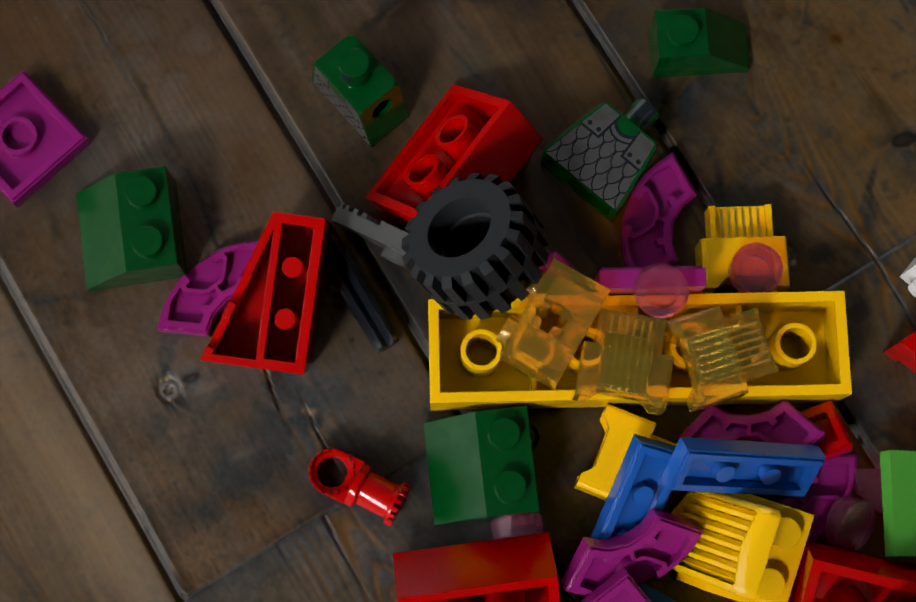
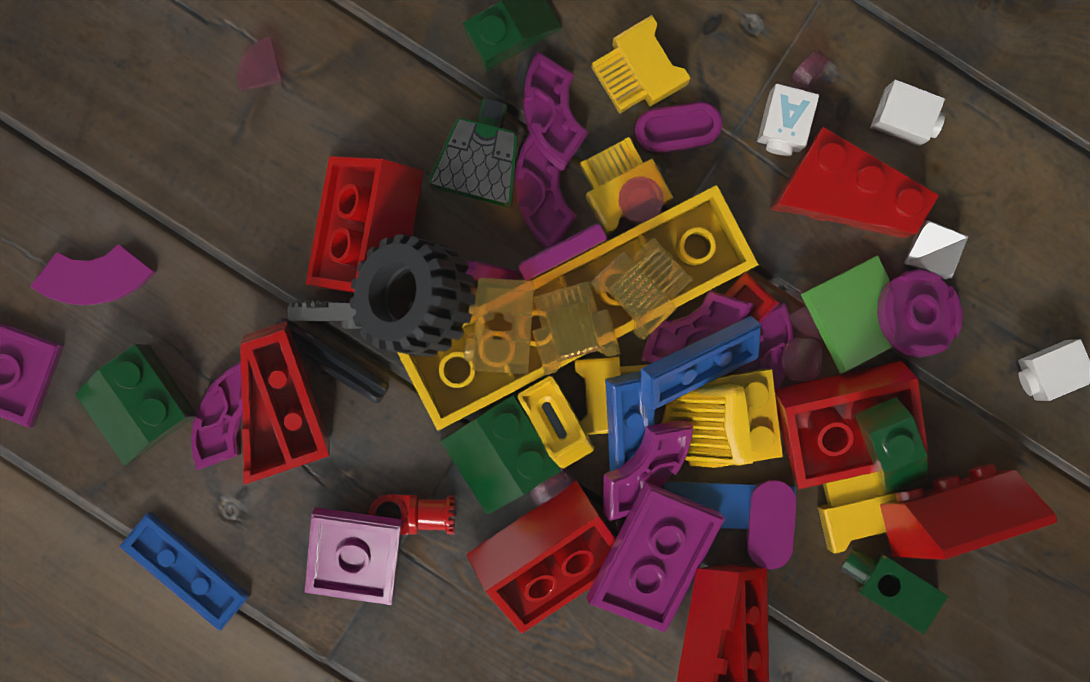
camera: 25 degrees left, 10 degrees up
(90, 428) = (184, 571): none -> blue tile
(156, 92) = (95, 280): none -> magenta tile
(272, 497) = (353, 556): none -> tile
(357, 85) = (258, 201): dark green torso -> none
(559, 456) = (555, 422): none -> yellow piece
(661, 290) = (573, 260): clear pink tile -> none
(699, 142) = (549, 112): none -> magenta tile
(812, 144) = (638, 68): none -> yellow piece
(824, 223) = (678, 127): none -> magenta tile

